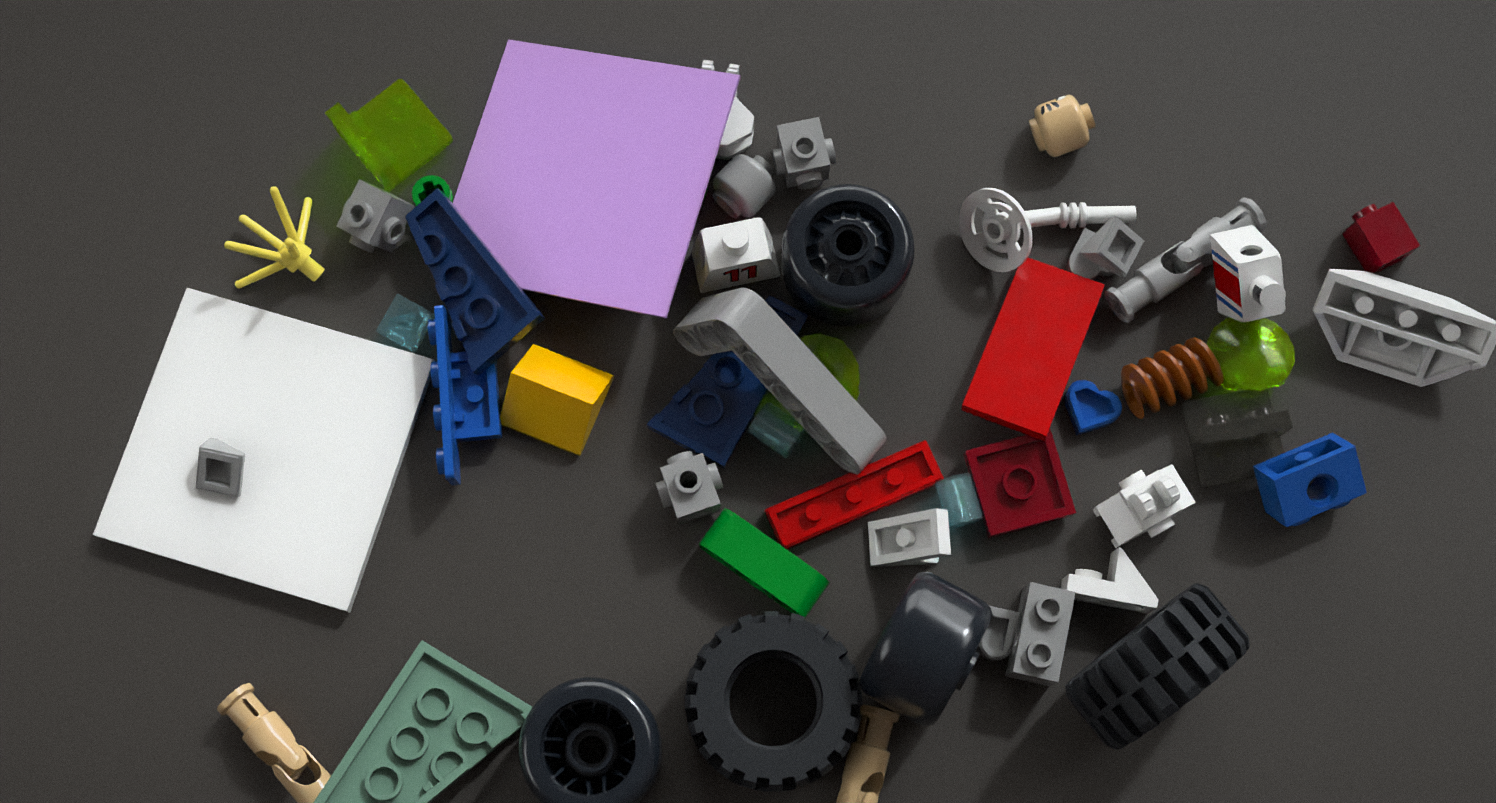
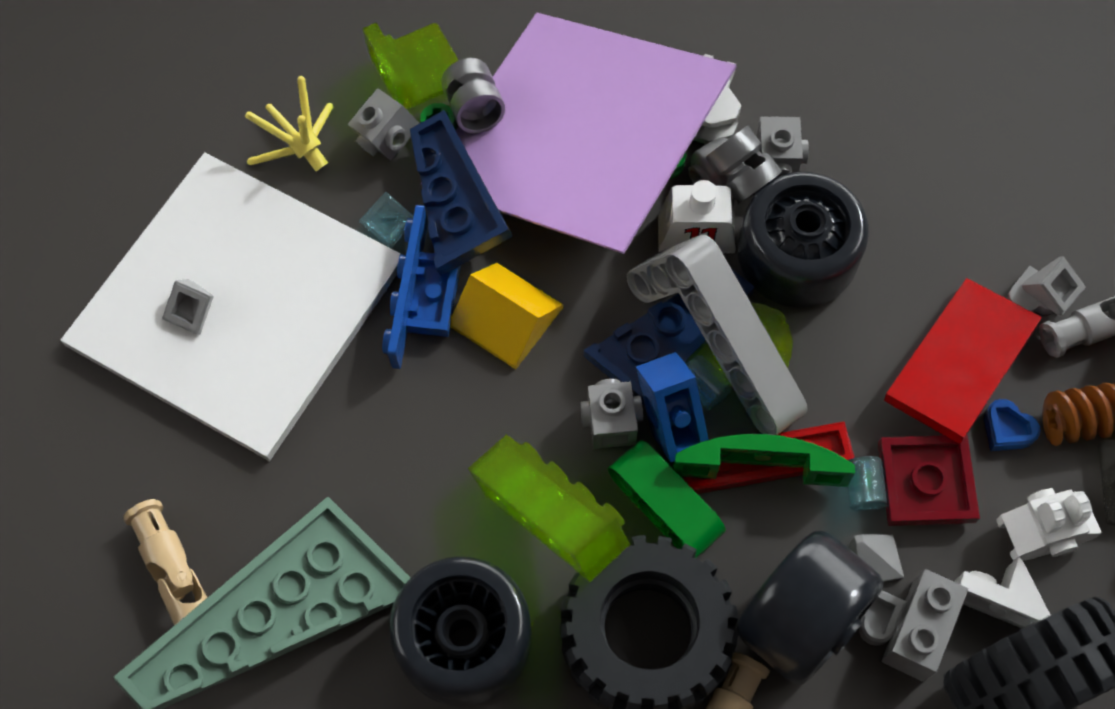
camera: 15 degrees right, 10 degrees down
(463, 162) = (473, 95): none -> flat silver wheel
(648, 604) = (550, 506): none -> clear neon green brick
(751, 469) = (672, 404): none -> blue brick
(763, 173) = (743, 164): none -> flat silver wheel
(907, 496) = (818, 463): none -> green slope
(910, 538) = (812, 506): white slope -> none
(983, 574) = (879, 553): none -> light grey slope
(1009, 222) = (967, 242): white dish -> none
(1061, 125) = (1022, 173): tan head -> none

